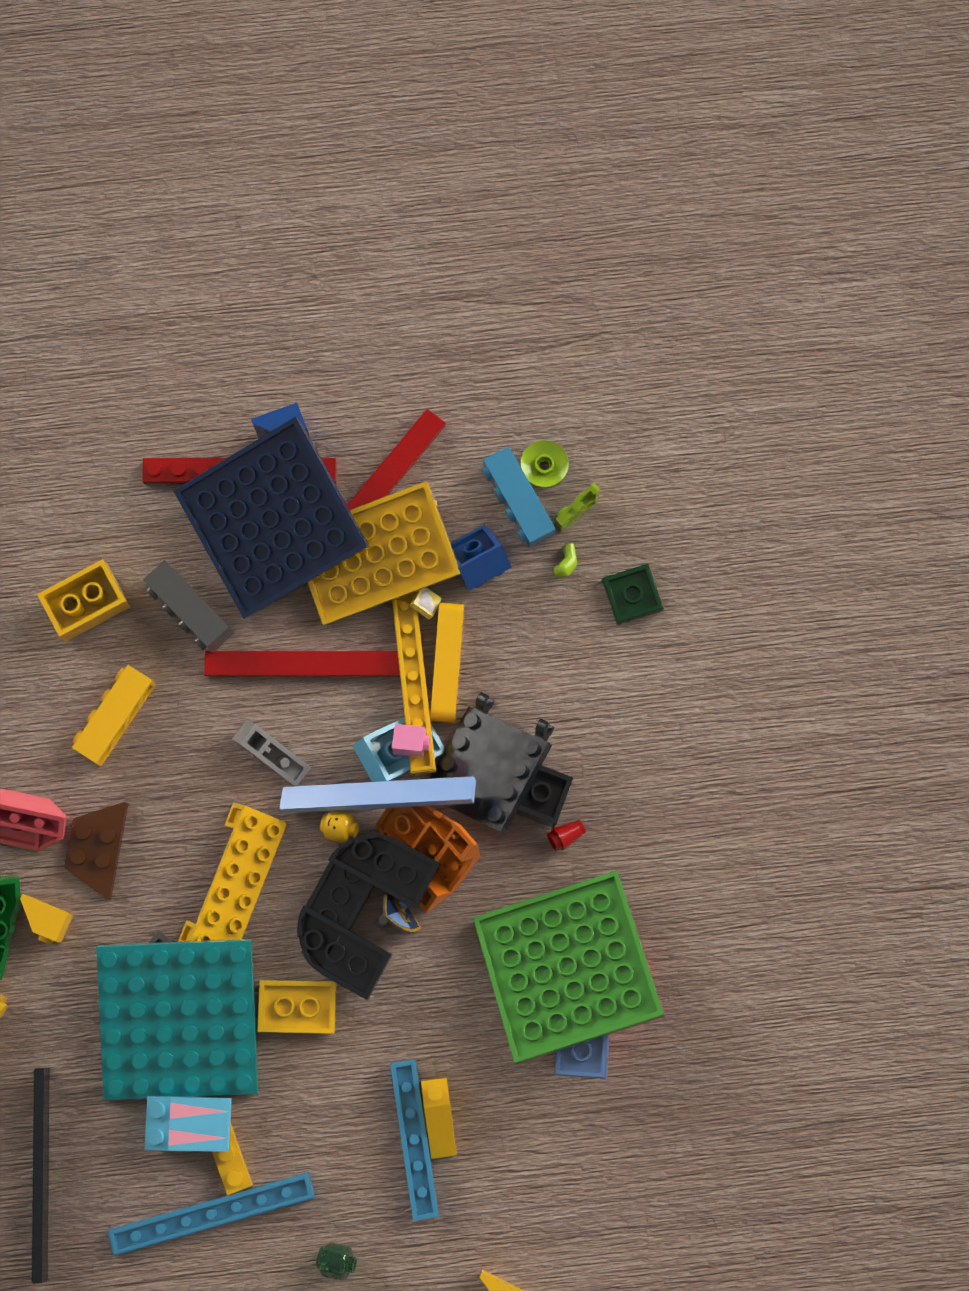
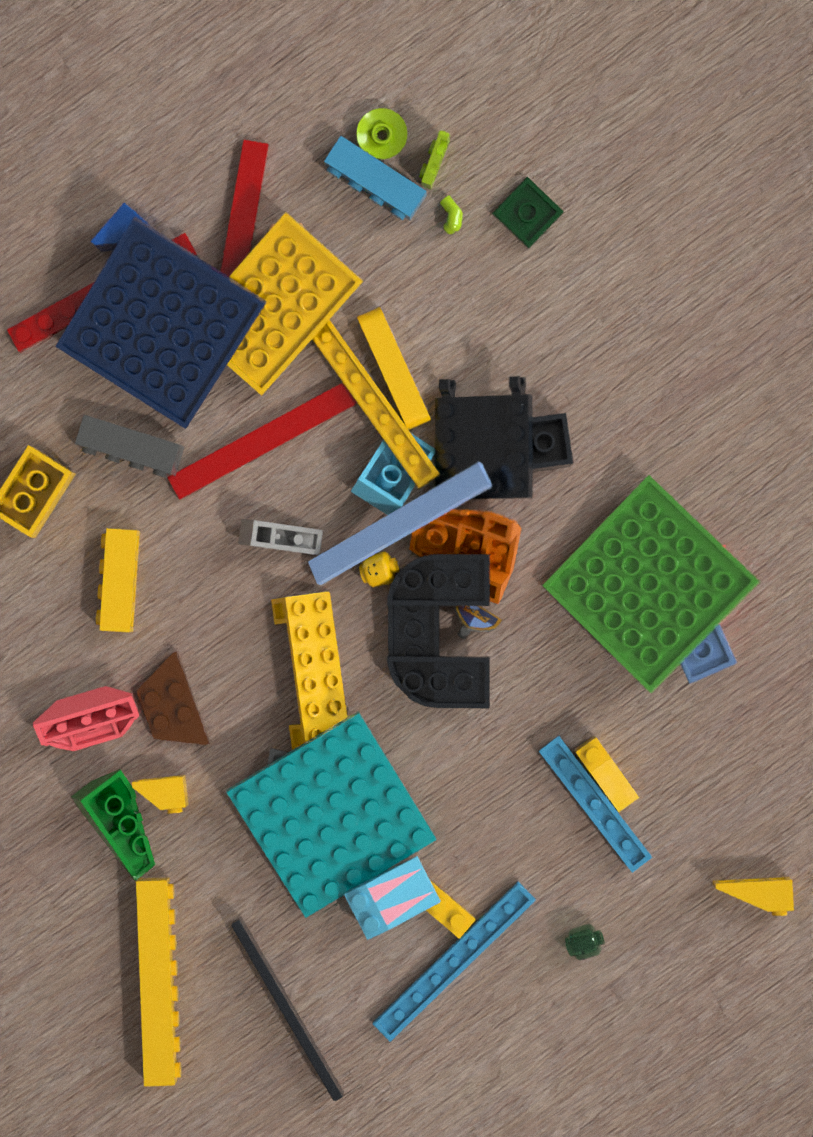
camera: 30 degrees left, 10 degrees up
(297, 1006) = (429, 747): yellow plate -> none
(410, 741) = (403, 459): bright pink brick -> none
(425, 602) = (344, 324): tile -> none
(479, 557) = (369, 254): blue slope -> none
(564, 835) = (584, 467): red cone -> none

